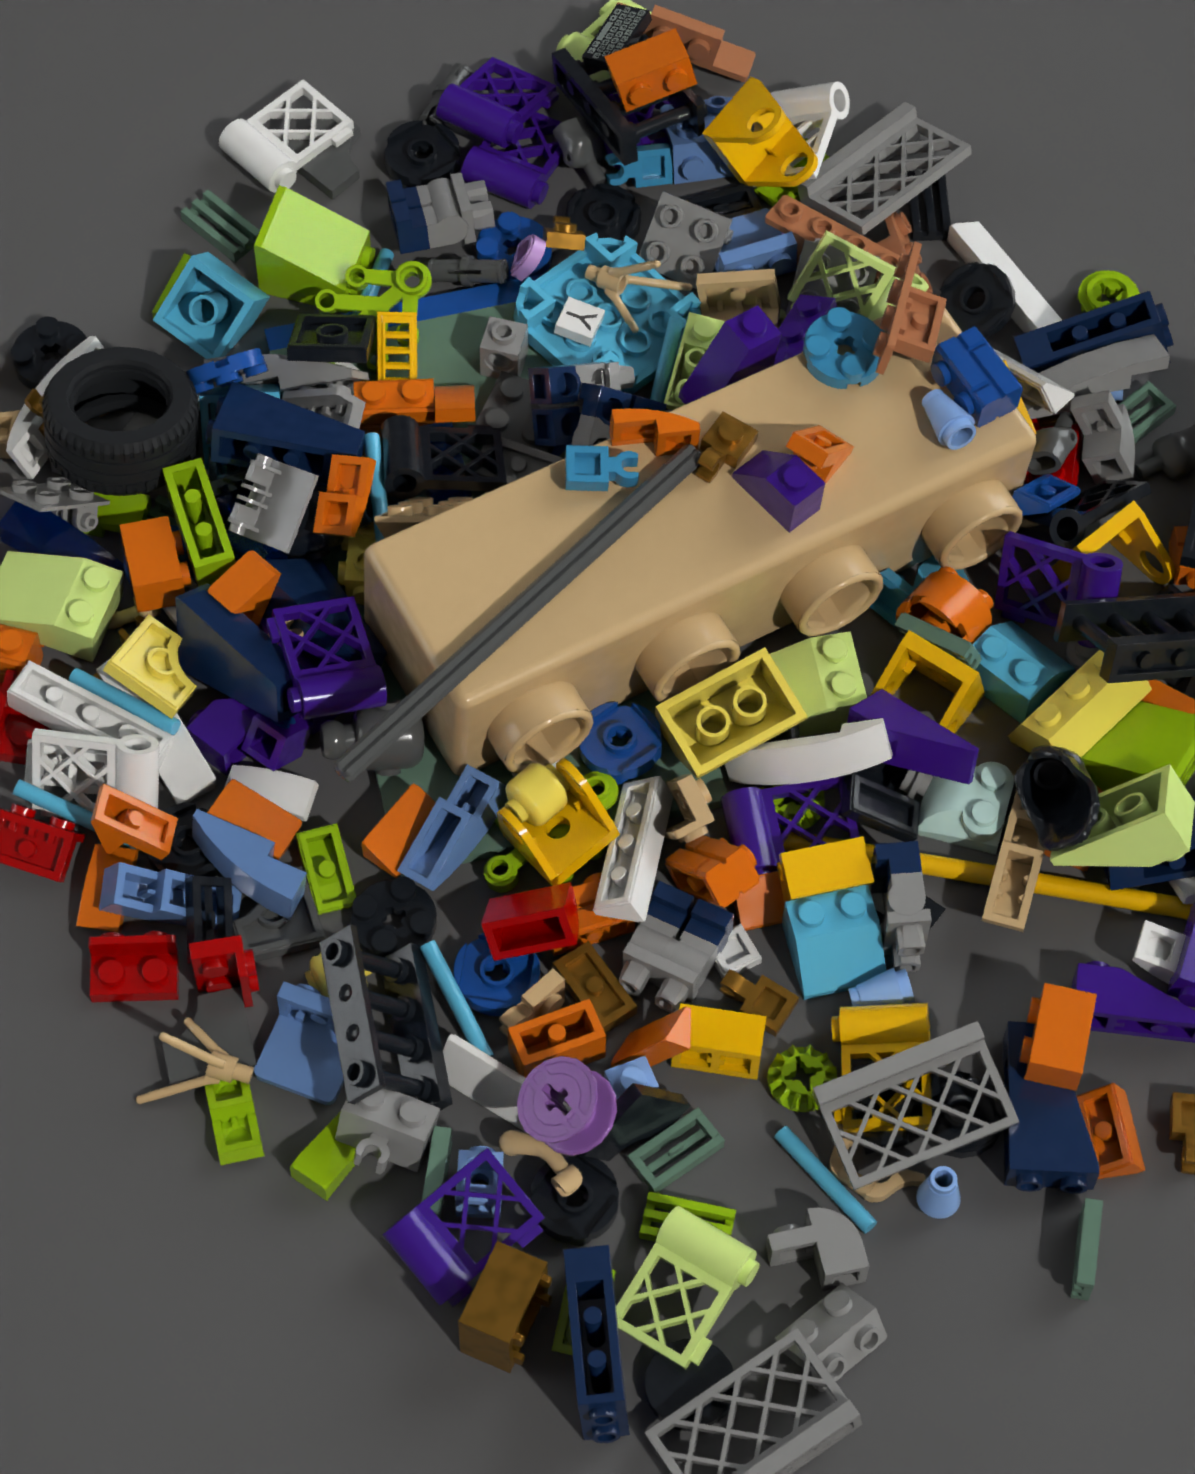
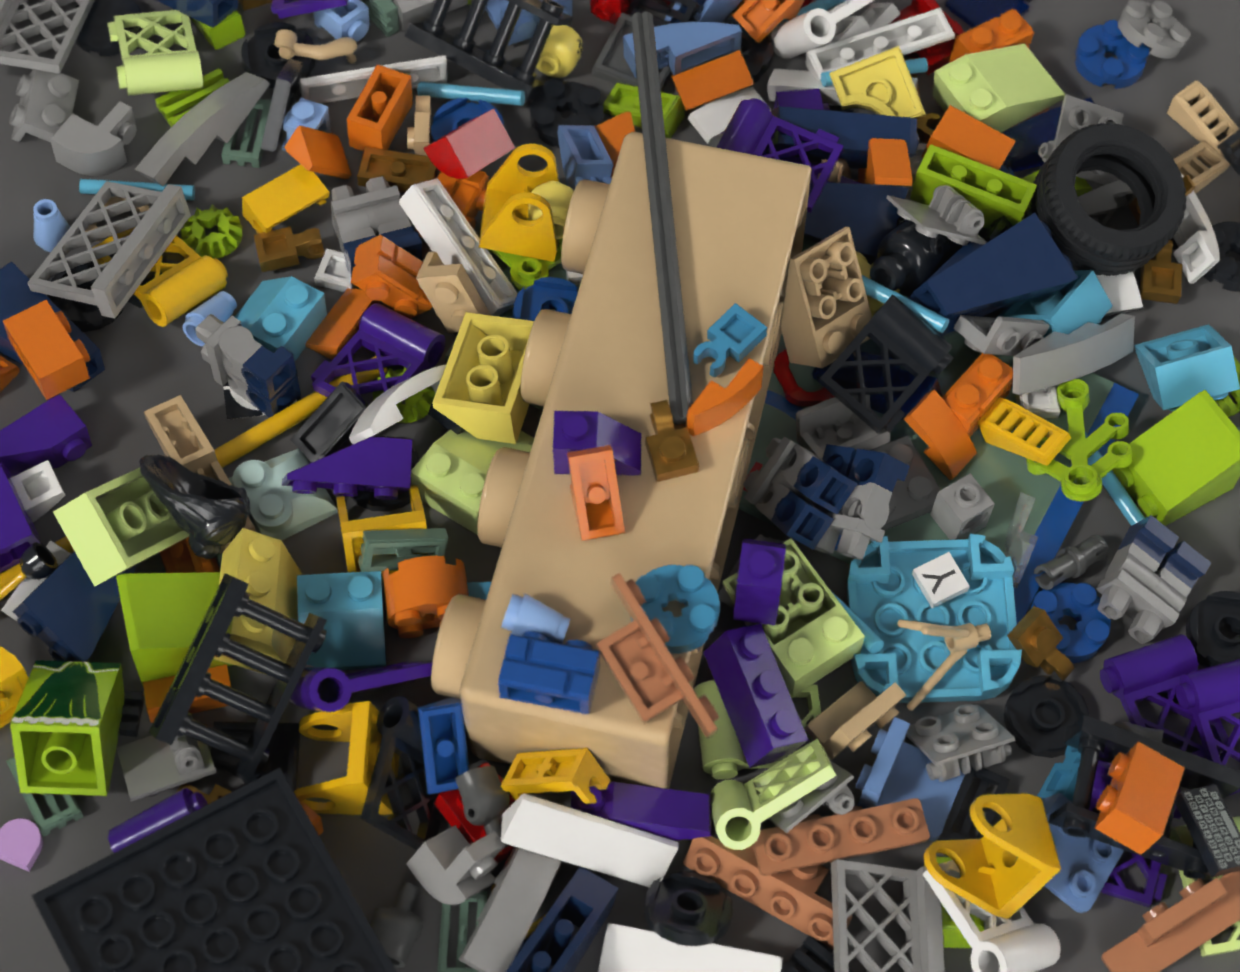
camera: 130 degrees right, 0 degrees up
(228, 370) = (1096, 289): blue plate -> none
(332, 338) = (1068, 382): black tile -> none
(346, 496) = (894, 250): orange slope -> none
(498, 301) = (1018, 542): none -> clear slope
(527, 256) = (1041, 597): lavender tile -> none
(584, 1090) = (320, 50): medium lavender piece -> none
(719, 1169) = (212, 118): none -> light grey slope
(824, 868) = (316, 330): yellow hinge -> none

